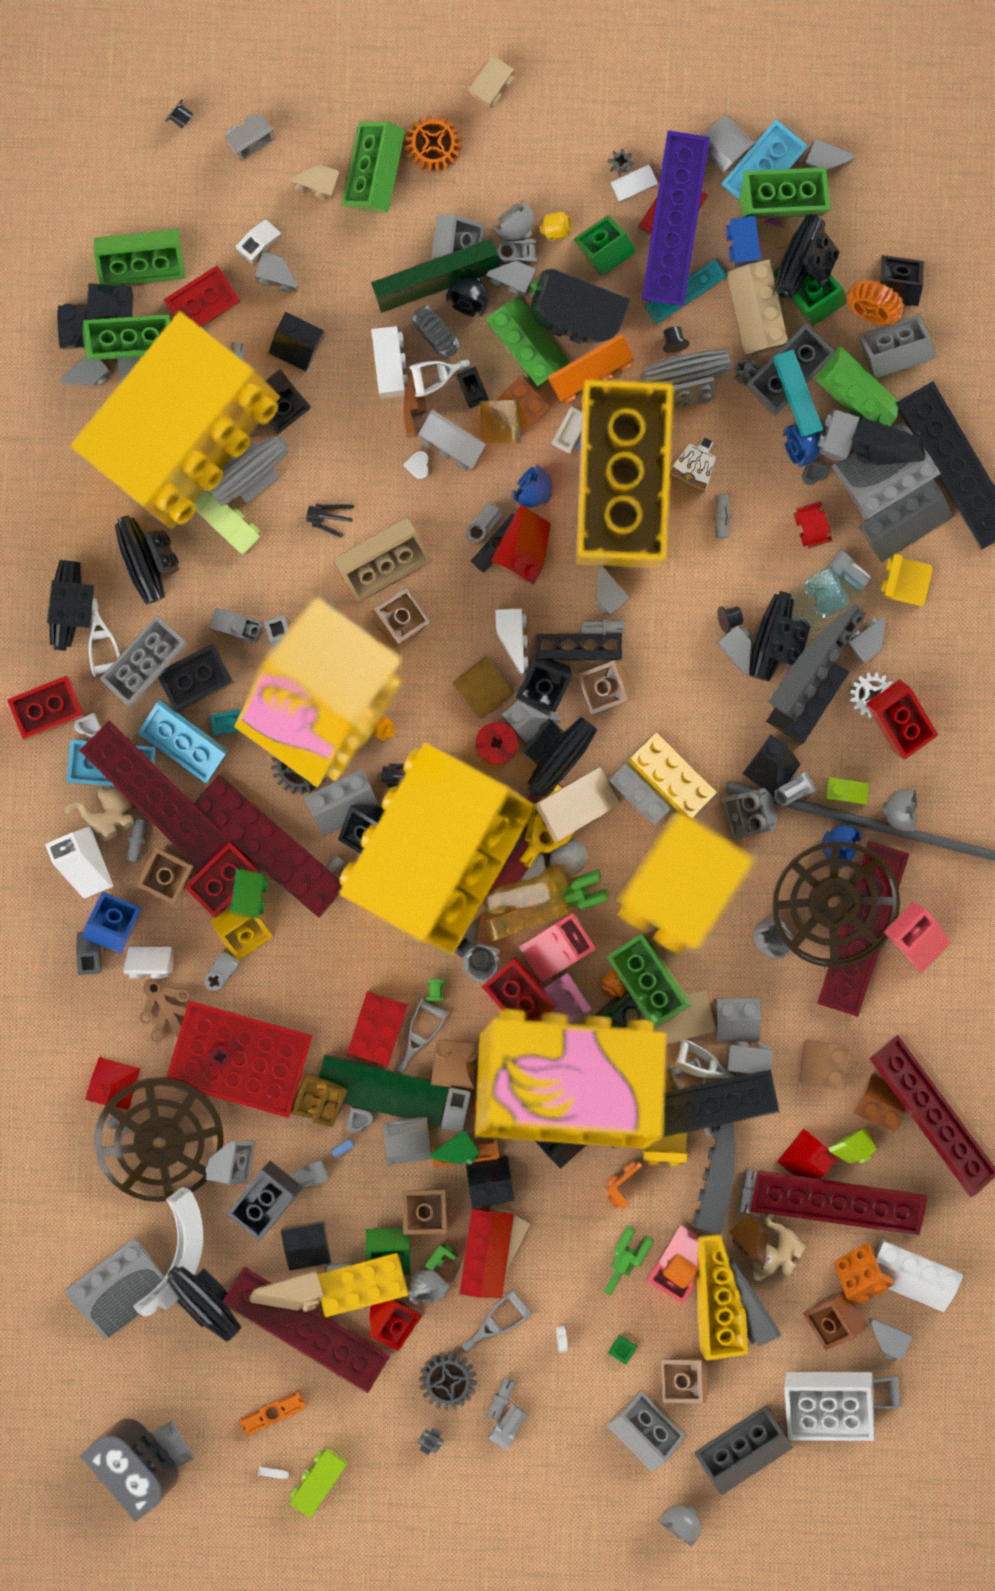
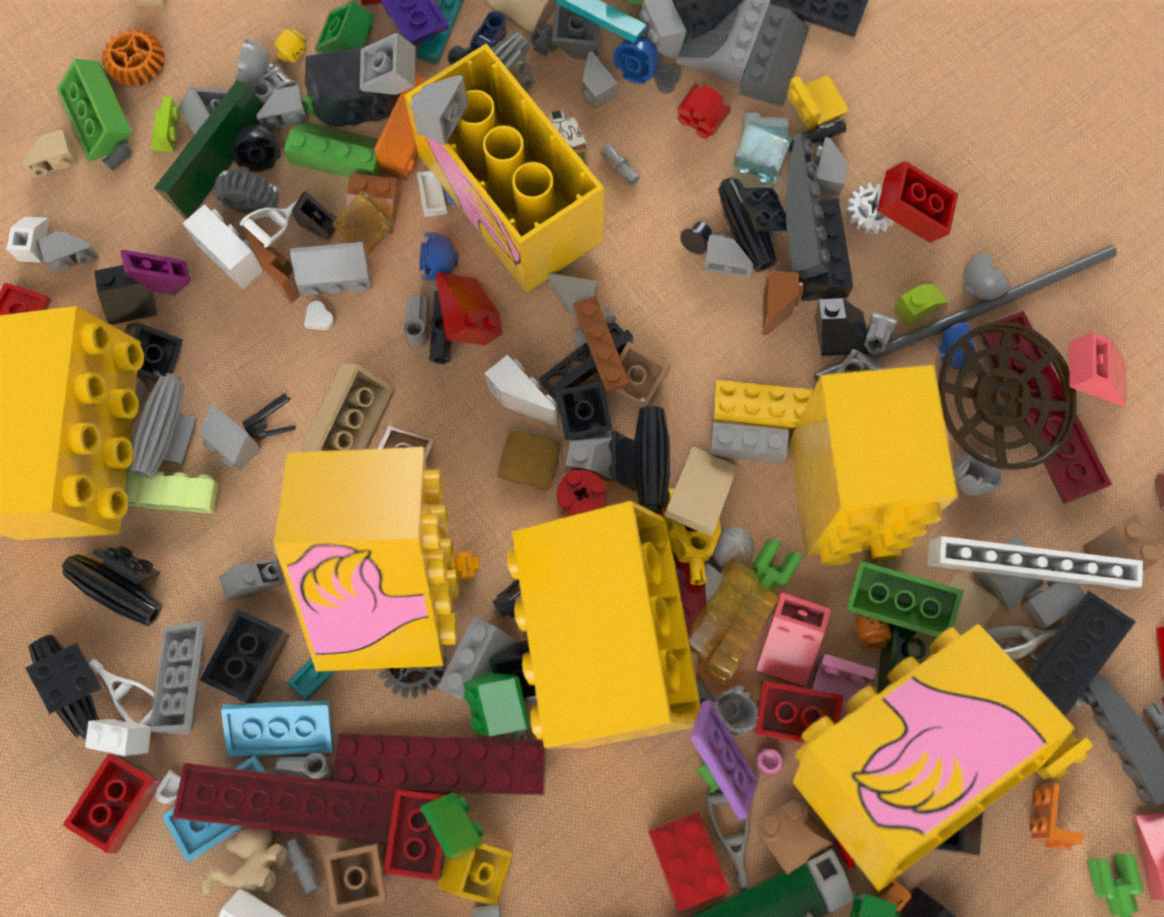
camera: 35 degrees left, 15 degrees down
(78, 668) = (118, 737): none -> white brick
(181, 779) = (305, 767): none -> light grey piece
(289, 513) = (227, 438): none -> light grey slope
(329, 350) = (156, 272): none -> magenta slope
(332, 837) = (496, 704): none -> slope
(366, 219) = (117, 156): none -> dark grey pin
(415, 223) = (165, 126): none -> lime bracket
(447, 986) = (724, 759): none -> medium lavender tile
(479, 1009) = (769, 761): none -> bright pink tile
(593, 647) = (600, 344): none -> dark orange plate
(595, 419) = (439, 108): none -> light grey slope
(604, 321) = (388, 66): none -> light grey slope
(709, 335) = (487, 33): none -> dark blue piece
(745, 712) = (779, 298): none -> dark orange slope
(748, 1025) = (1035, 563): none -> white brick
(758, 437) = (597, 82): none -> light grey slope
(888, 608) = (818, 134): none -> black pin

